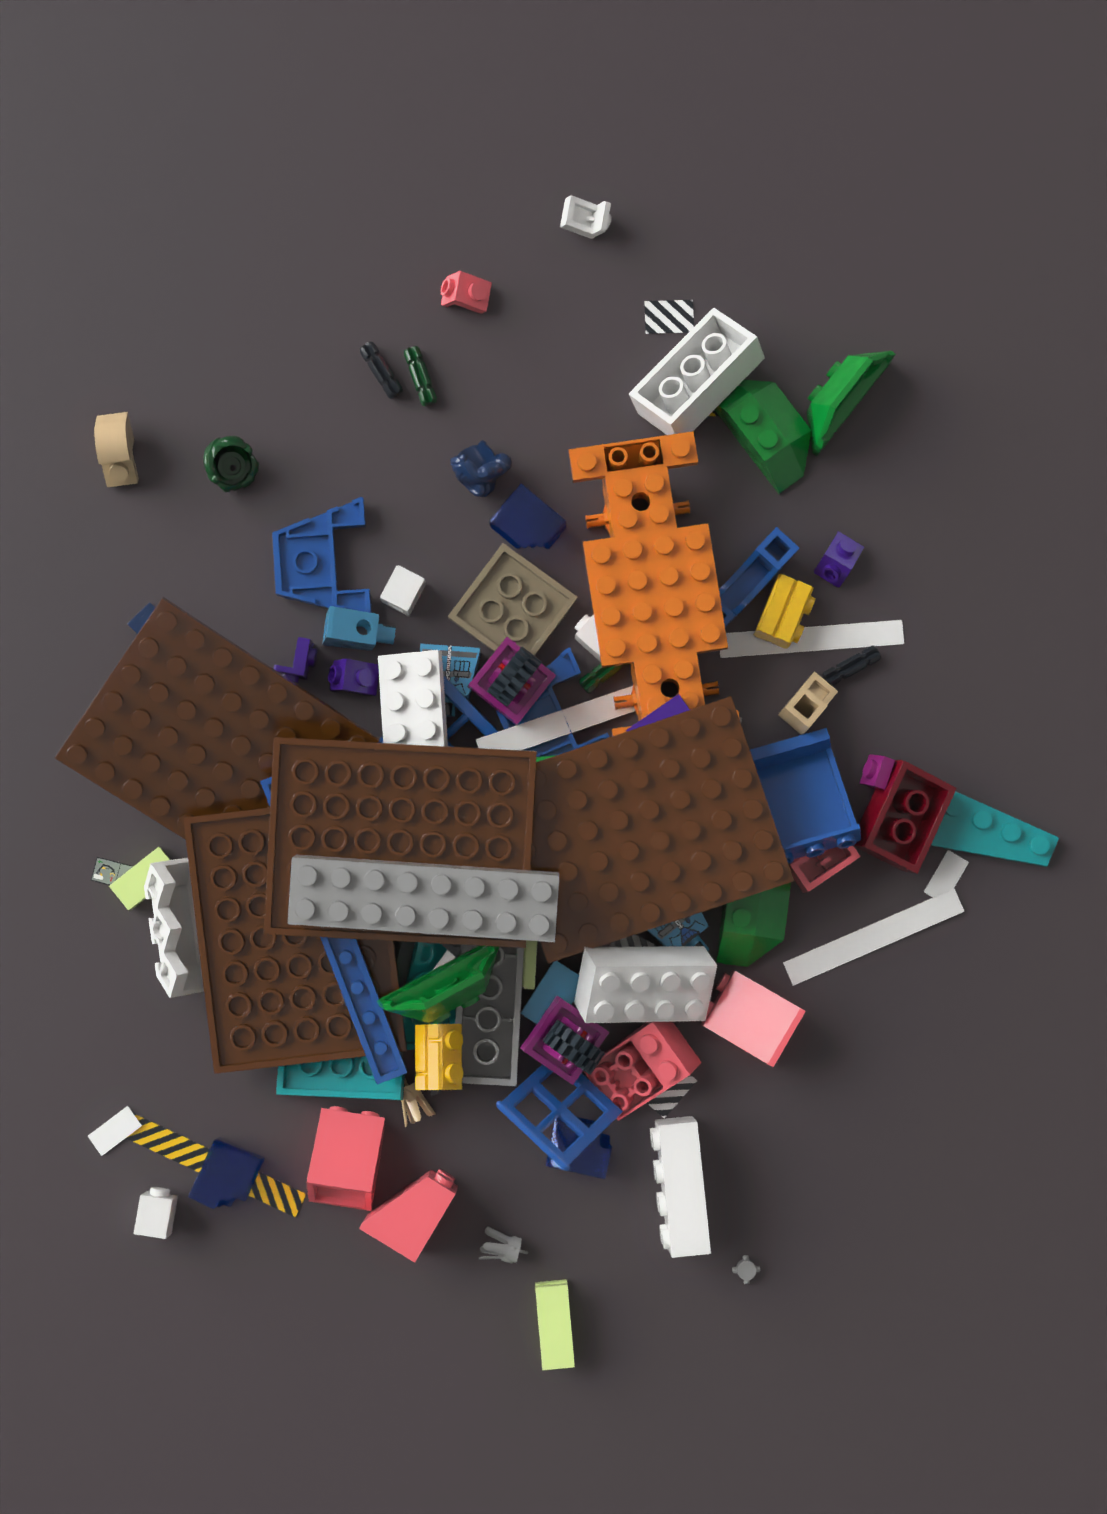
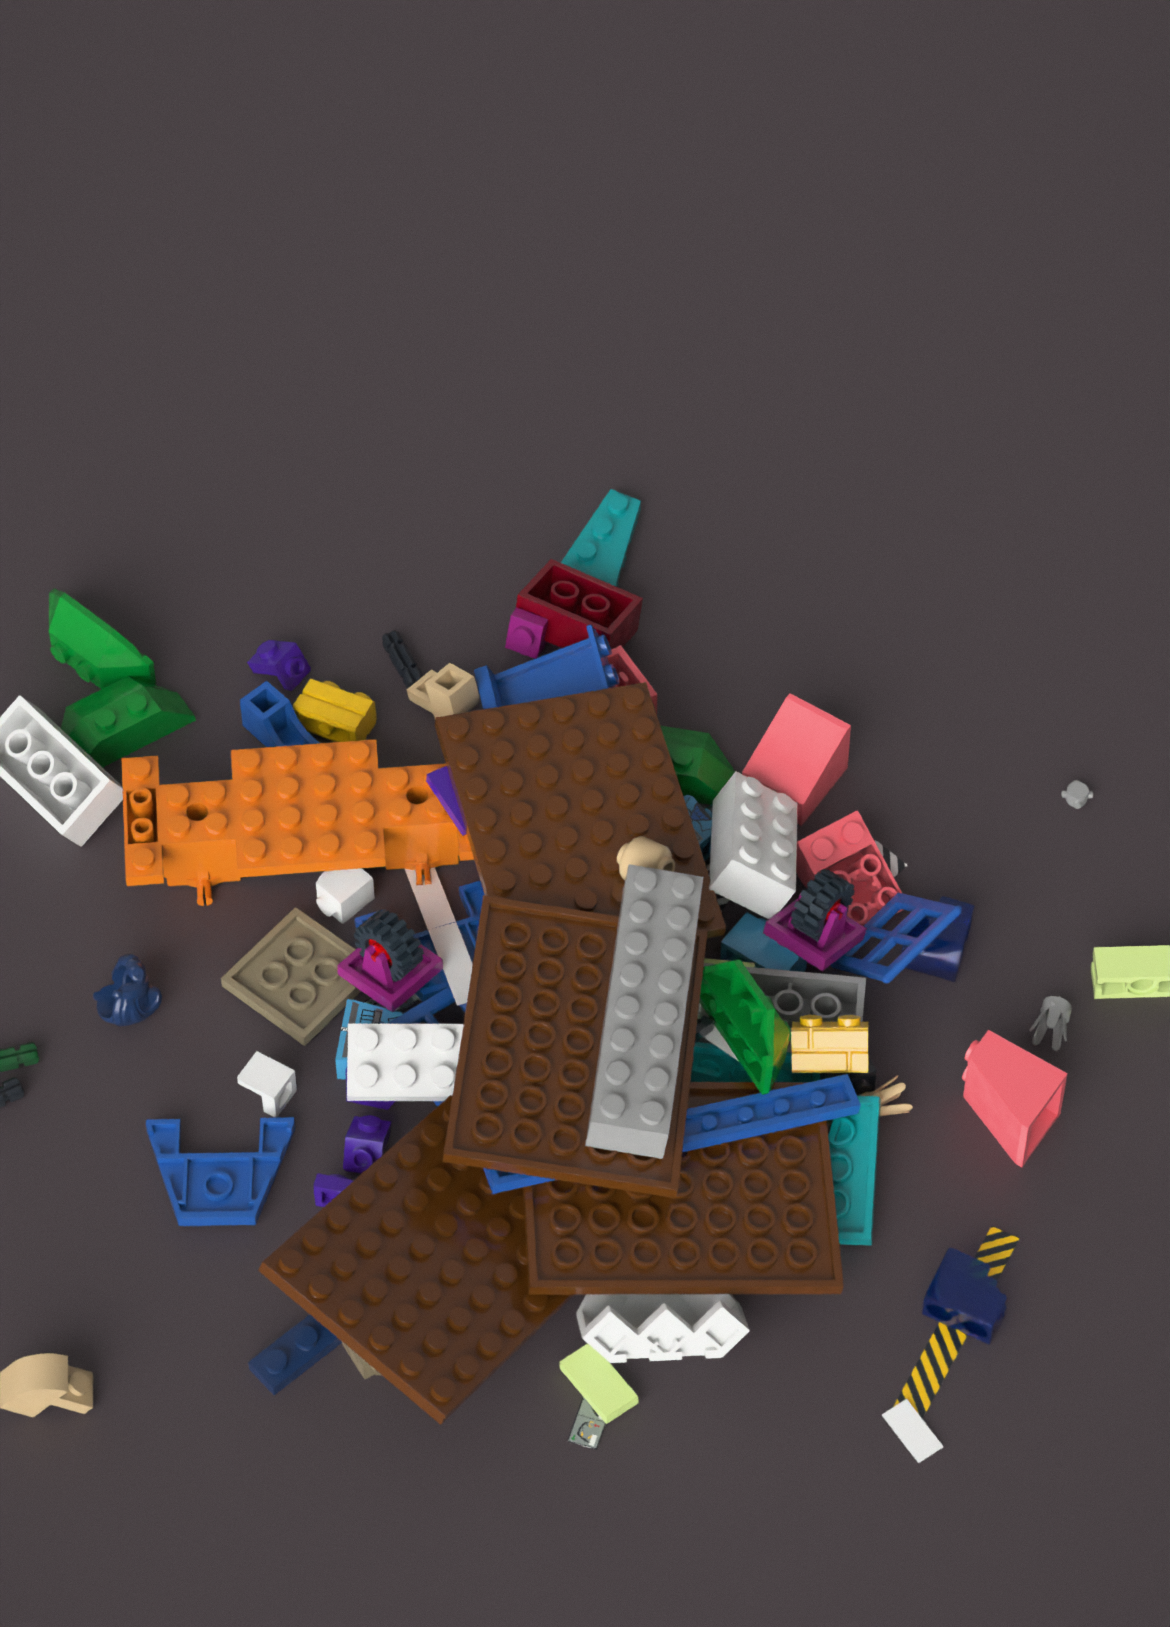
camera: 80 degrees left, 30 degrees down
(156, 1213) = (1012, 1372): white brick -> none
(226, 452) = (80, 1259): dark green hair -> none
(342, 632) = (308, 1117): dark azure torso -> none
(346, 1158) = (950, 1167): coral slope -> none
(527, 521) = (196, 952): clear blue piece -> none
(588, 890) = (644, 853): none -> tan head
(600, 675) = (387, 893): dark green axle -> none
(682, 1186) = (982, 833): white brick -> none
(819, 638) = (368, 667): white sticker -> none
(873, 937) = (710, 662): white sticker -> none
(946, 875) = (653, 596): white sticker -> none

